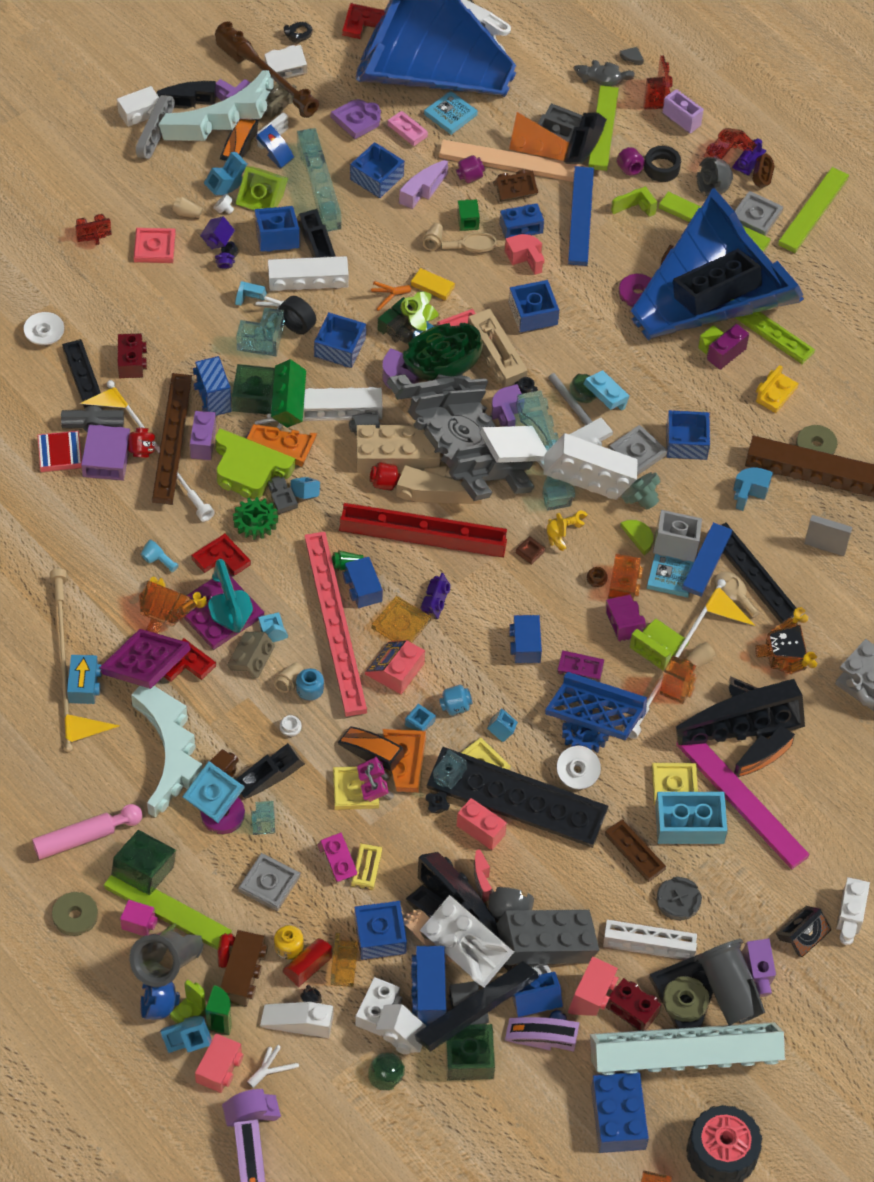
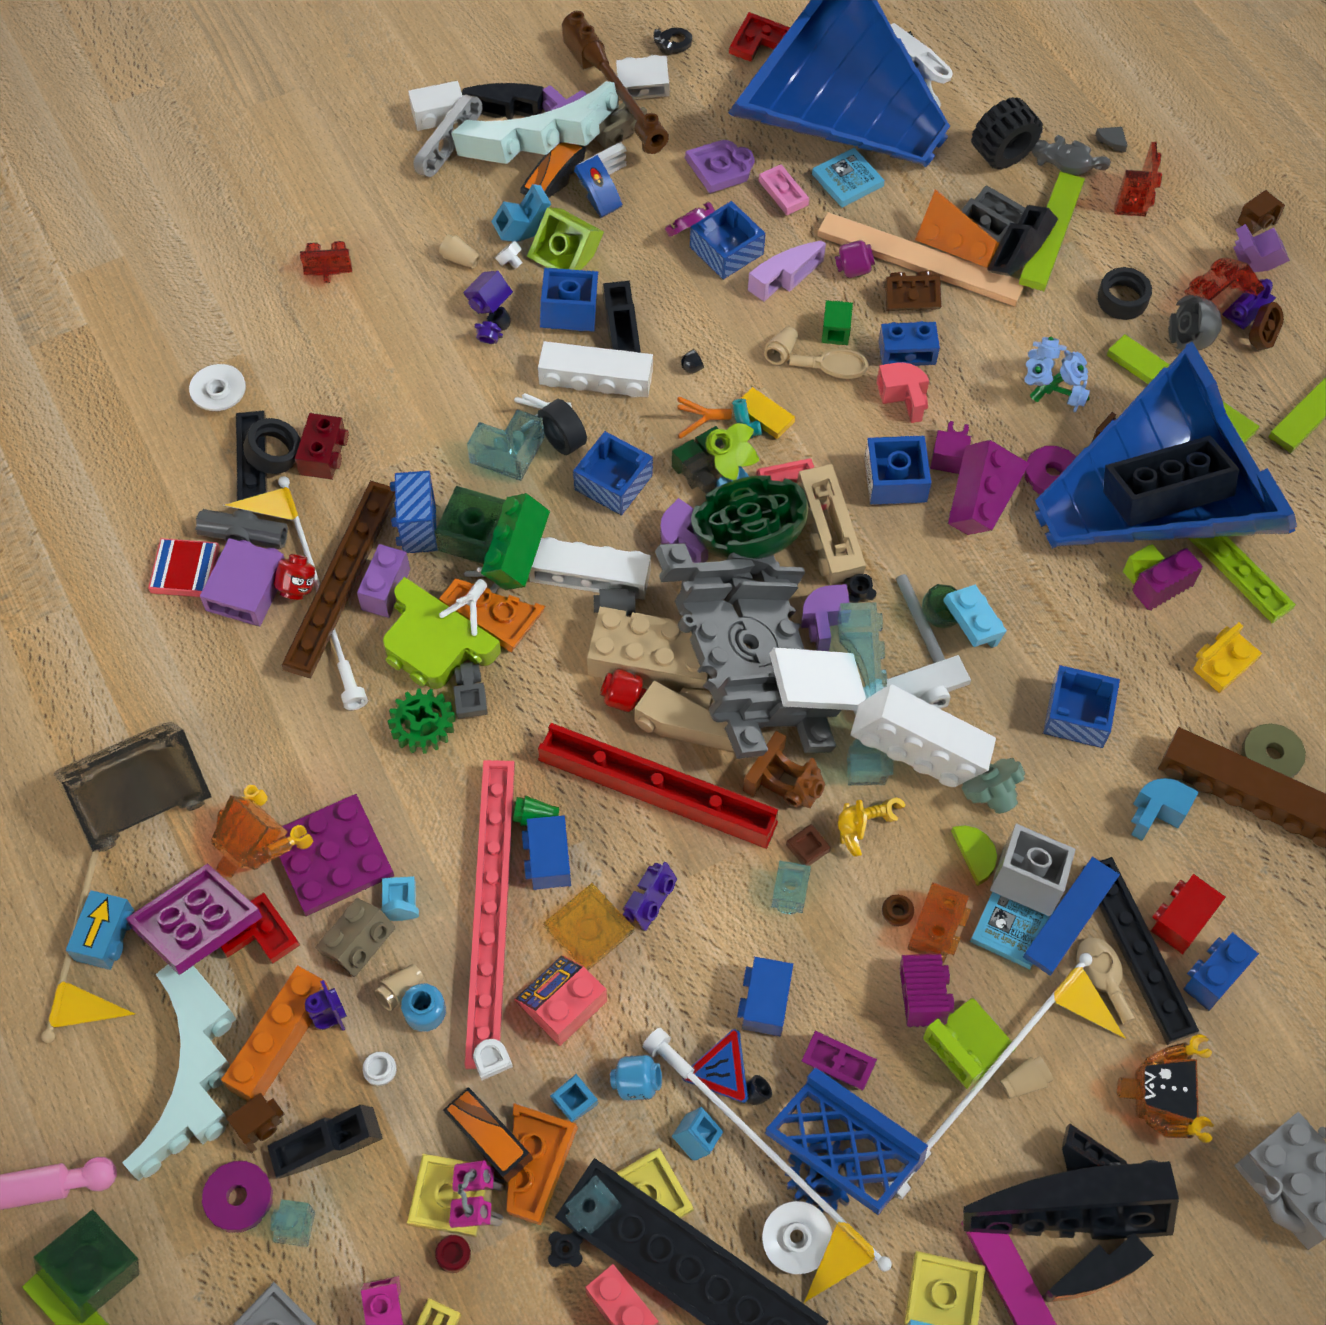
camera: 15 degrees right, 5 degrees up
(78, 585) = (132, 783): none -> clear smoke windscreen
(99, 350) = (272, 428): none -> black tyre
(152, 552) = (262, 746): medium azure bar -> none
(154, 245) = (402, 295): coral tile -> none
(213, 792) = (226, 1165): medium azure tile -> none
(220, 716) = (273, 1038): none -> orange brick
(223, 549) = (357, 762): red plate -> none
(232, 607) = (342, 859): teal piece -> none
(249, 290) = (505, 378): medium azure tile -> none
(249, 694) = (325, 1008): none -> dark purple hinge
(268, 435) = (470, 599): none -> white plant
(305, 487) = (506, 685): dark azure slope -> none
(323, 190) = (645, 241): clear light blue arch -> none
(347, 159) = (689, 219): none -> magenta tile
(362, 704) = (491, 1058): none -> white tile
(368, 818) = (453, 1254): none -> dark red tile
(374, 258) = (692, 362): none -> black hinge
(417, 286) = (742, 416): none -> teal arm
(496, 504) = (772, 765): none -> dark orange tile
(508, 685) = (723, 1068): none -> piece
(525, 574) = (795, 876): none -> clear light blue brick
(533, 694) = (758, 1090): none -> black hinge
(558, 64) = (1007, 133): none -> black tyre
(567, 287) = (950, 449): none -> magenta brick
(581, 216) = (993, 350): blue tile -> none
(595, 306) = (984, 486): none -> magenta wedge
(610, 765) = (847, 1248): none -> piece
(616, 224) = (1071, 371): none -> light blue plant
(630, 161) = (1080, 283): magenta head -> none
(638, 196) = (1084, 335): lime bracket -> none
(641, 446) = (1003, 714): light grey plate -> none
(678, 680) = (987, 1117): clear orange brick -> none
(683, 111) = (1168, 224): lavender brick -> none
(745, 93) = (1261, 212): none -> reddish brown brick
(750, 120) = (1262, 251): none -> medium lavender brick
(758, 213) = (1248, 386): light grey plate -> none
(779, 546) = (1187, 913): none -> red piece
(805, 575) = (1220, 971): none -> blue brick
(828, 535) = (1267, 913): light grey tile -> none

